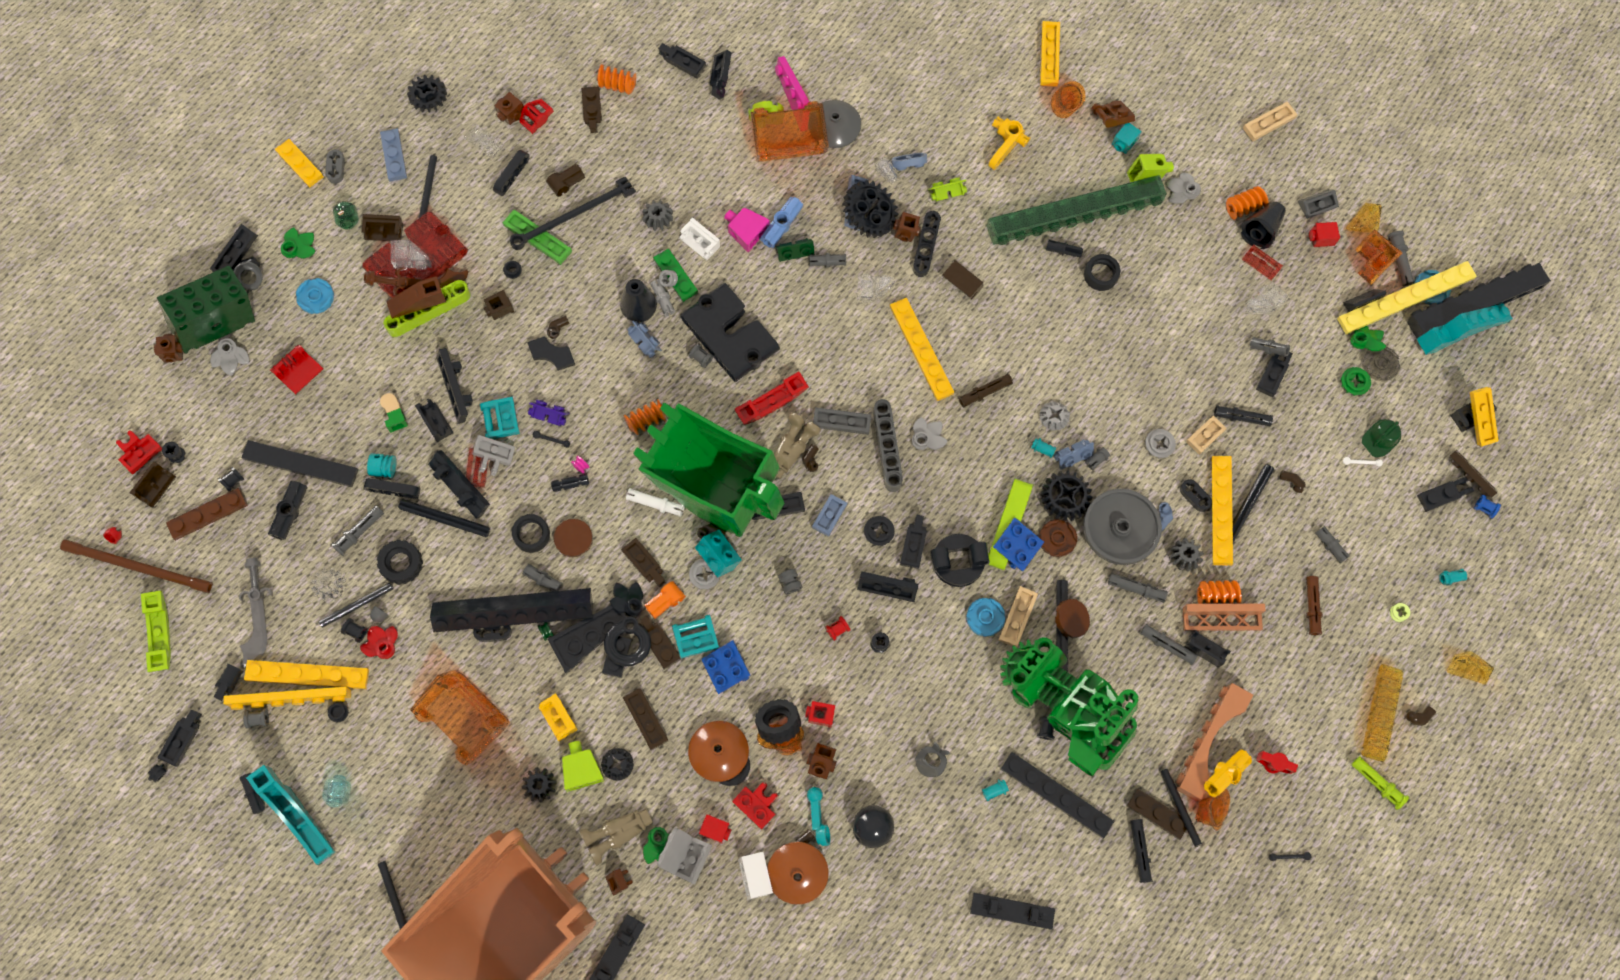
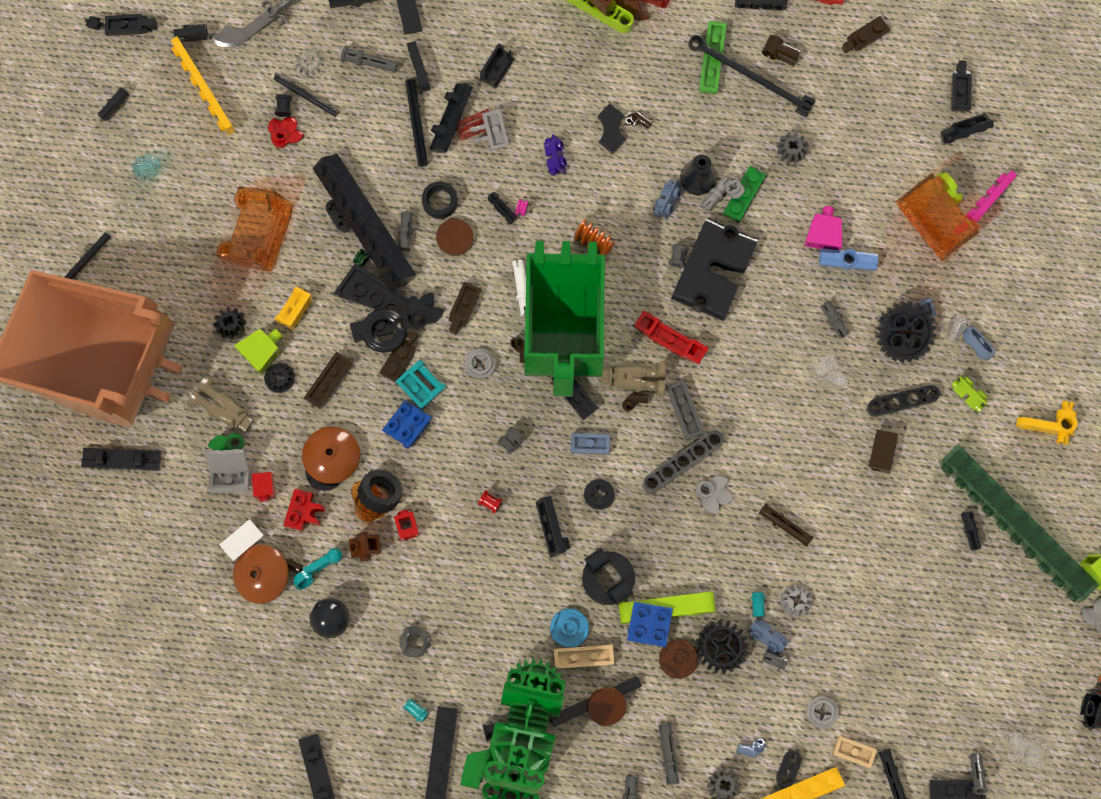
camera: 65 degrees right, 5 degrees up
(256, 718) = (173, 72): dark grey bush -> none
(291, 812) = (112, 141): teal arch -> none
(306, 674) = (228, 90): yellow plate -> none
(338, 712) = (210, 131): black plate -> none
(378, 615) = (306, 117): dark grey hinge -> none
(381, 465) = (433, 47): teal piece -> none
(392, 549) = (352, 96): black tyre -> none
(394, 411) = (486, 30): leg -> none
(448, 370) = (524, 76): black hinge -> none
(498, 300) = (629, 54): dark brown brick -> none
(505, 415) = (531, 123): teal plate -> none
(509, 265) = (670, 48): black plate -> none
(536, 434) = (531, 157): black hinge -> none
(616, 81) = (904, 41): orange piece -> none
(617, 882) = (181, 428): reddish brown tile -> none
(668, 597) = (444, 344): orange piece -> none
(699, 239) = (789, 196): white hinge -> none
(718, 553) = (502, 365): teal brick -> none
(792, 251) = (823, 279): dark green hinge -> none
(844, 128) = (978, 268): dark grey dish -> none
(880, 636) = (493, 539): black bush -> none
(906, 227) = (912, 372): reddish brown brick -> none
(914, 544) = (603, 531): black hinge -> none
(921, 349) = (794, 447): yellow plate -> none
(1105, 260) = (974, 565): black tyre -> none
(1122, 526) = (718, 712): dark grey dish -> none
(1260, 265) = (1072, 747): clear red tile -> none

